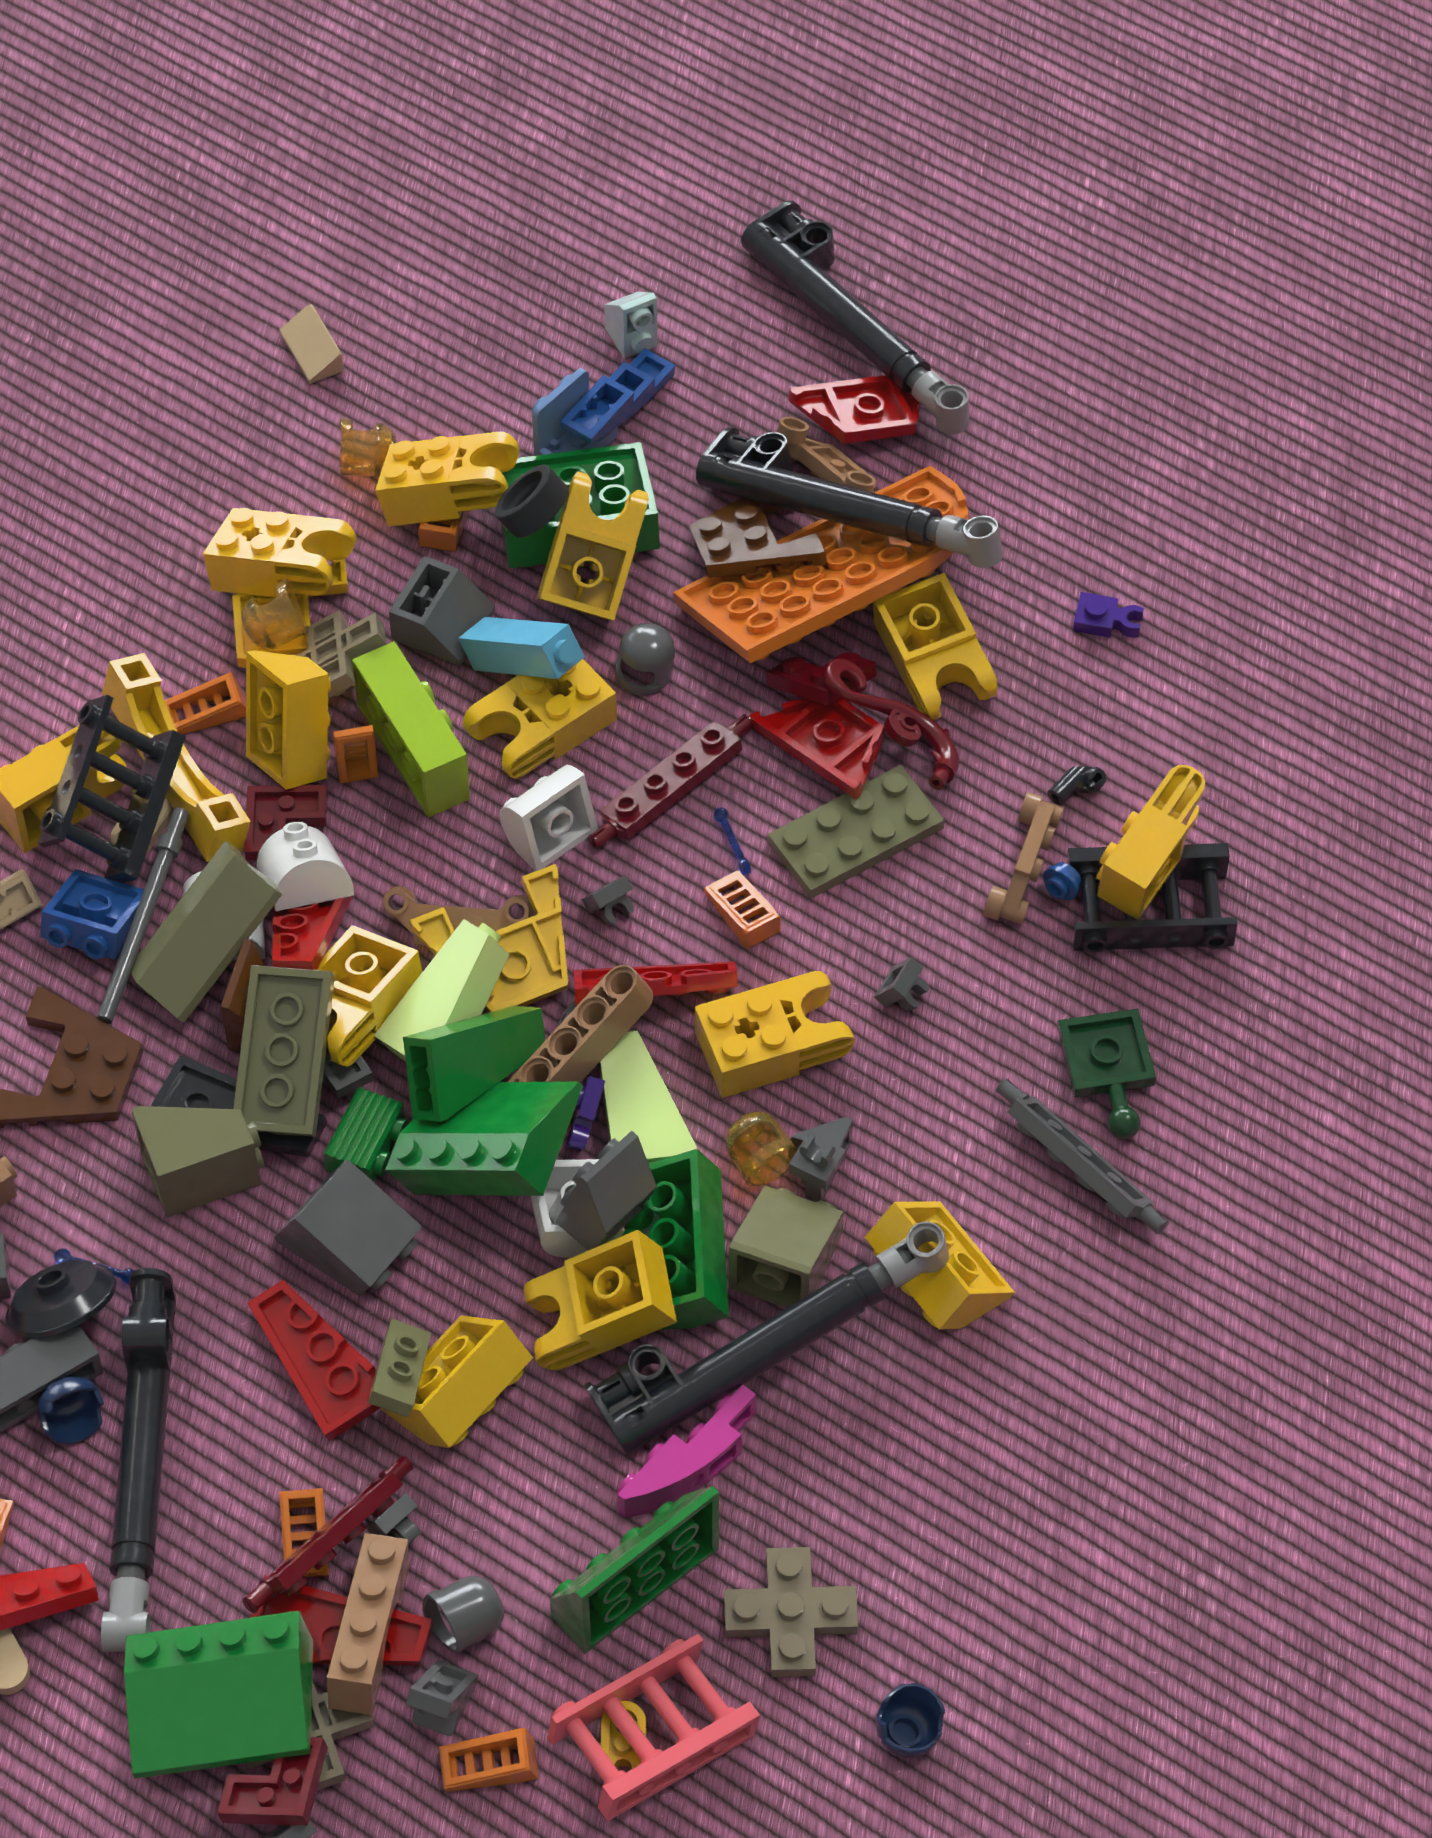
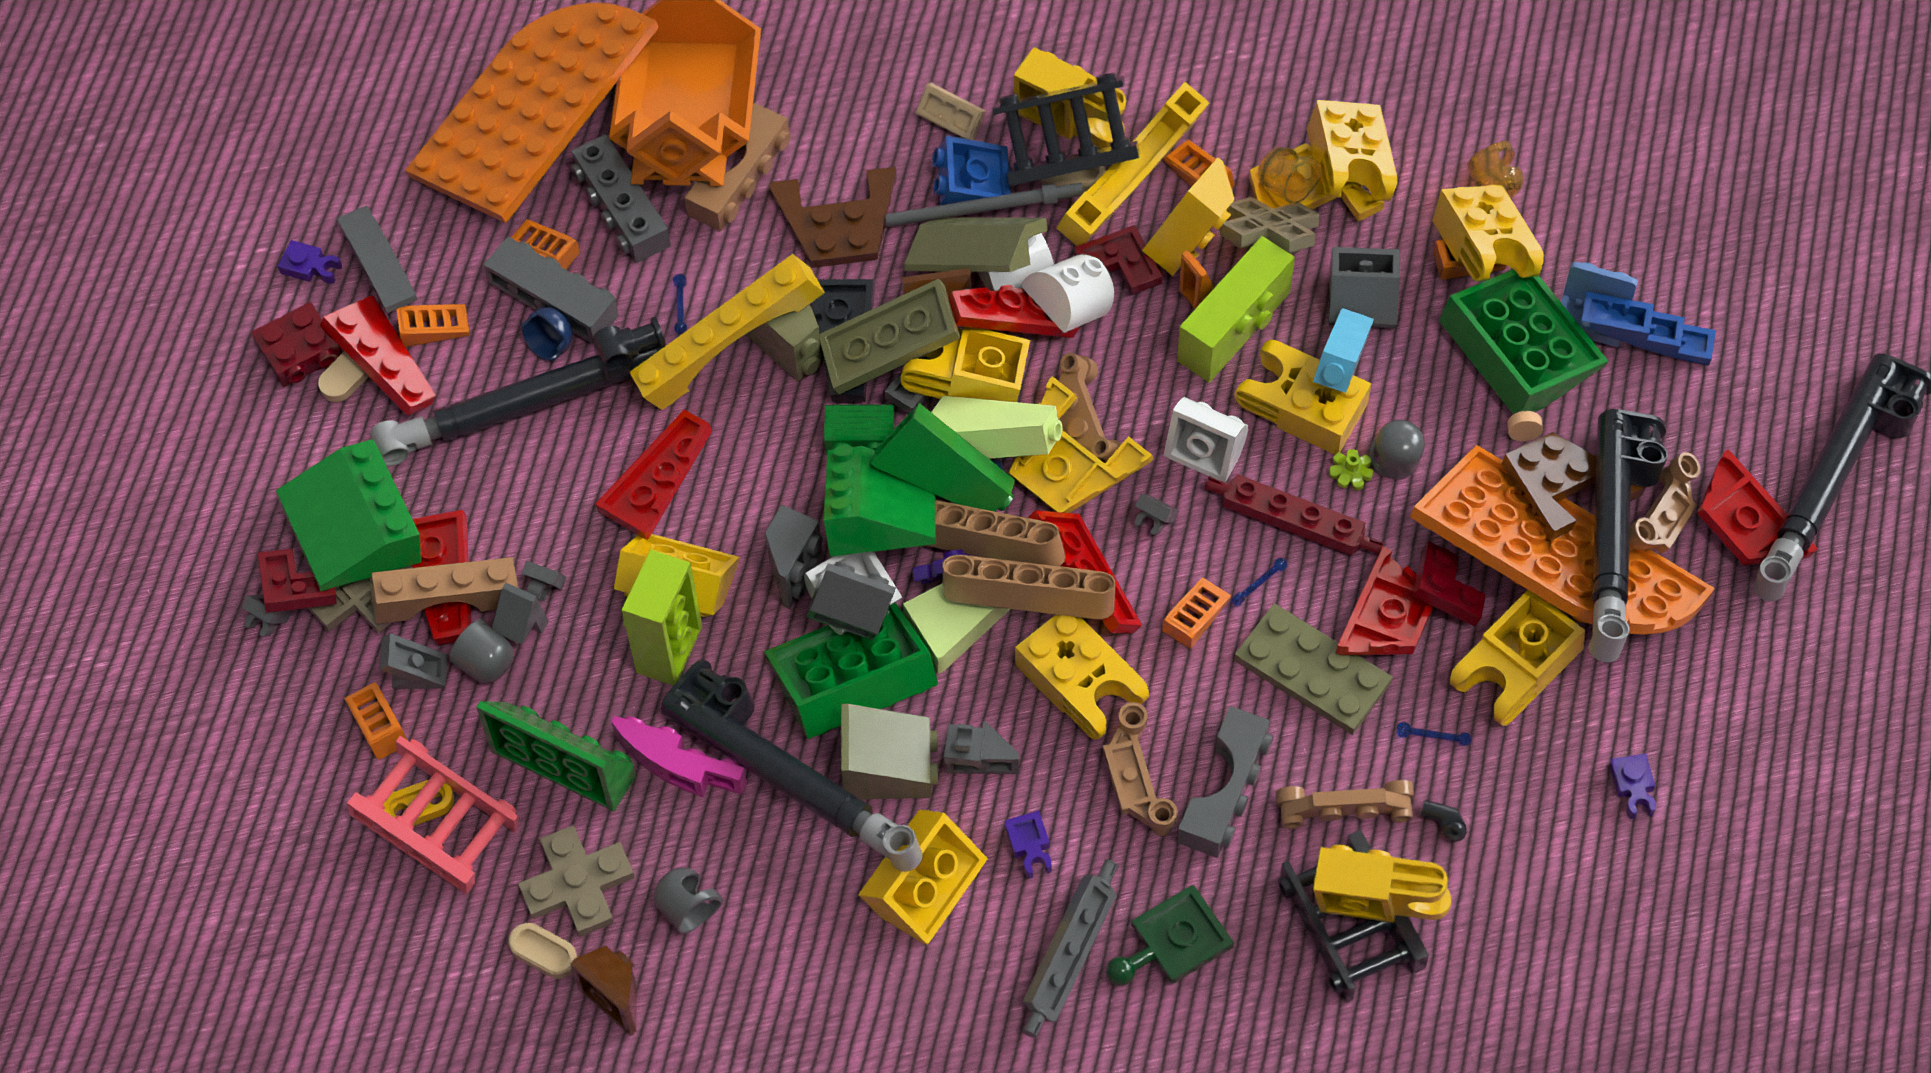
camera: 70 degrees right, 5 degrees up
(59, 1298) = (631, 287): black piece -> none
(192, 1206) = (779, 291): none -> yellow arch
(302, 1499) = (508, 515): orange slope -> none
(312, 345) = (1584, 100): tan slope -> none
(319, 1548) = (492, 534): dark red plate -> none
(350, 1230) = (770, 450): dark grey slope -> none
(399, 1368) = (662, 526): olive plate -> none
(442, 1550) = (518, 614): none -> dark grey slope
(497, 1247) = (793, 550): none -> dark grey slope
(531, 501) = (1474, 294): black tyre -> none
(538, 1386) = (662, 617): none -> lime brick
(601, 542) = (1470, 360): yellow brick -> none
(602, 1300) = (775, 643): yellow brick -> none
(632, 322) = (1732, 309): light aqua slope -> none
(641, 712) = (1351, 469): none -> lime plant
(664, 1028) = (1028, 586): none -> medium nougat beam
(672, 544) = (1525, 426): none -> light nougat tile
(759, 1148) = (969, 701): clear yellow helmet -> none
(861, 1673) = (542, 950): none -> tan tile
(870, 1507) = (678, 895): none -> dark grey helmet
(898, 719) = (1437, 652): dark red plant -> none
(899, 983) = (1174, 752): dark grey tile -> none
(908, 1032) = (1131, 775): none -> medium nougat plate
(910, 1720) = (505, 995): dark blue hair -> none
(918, 921) = (1209, 819): none -> dark grey arch
(937, 1152) = (1028, 839): none -> dark purple plate
(949, 1607) = (609, 984): none -> reddish brown slope
(960, 780) = (1404, 730): none -> clear blue hinge
(1062, 881) = (1334, 836): blue plate -> none

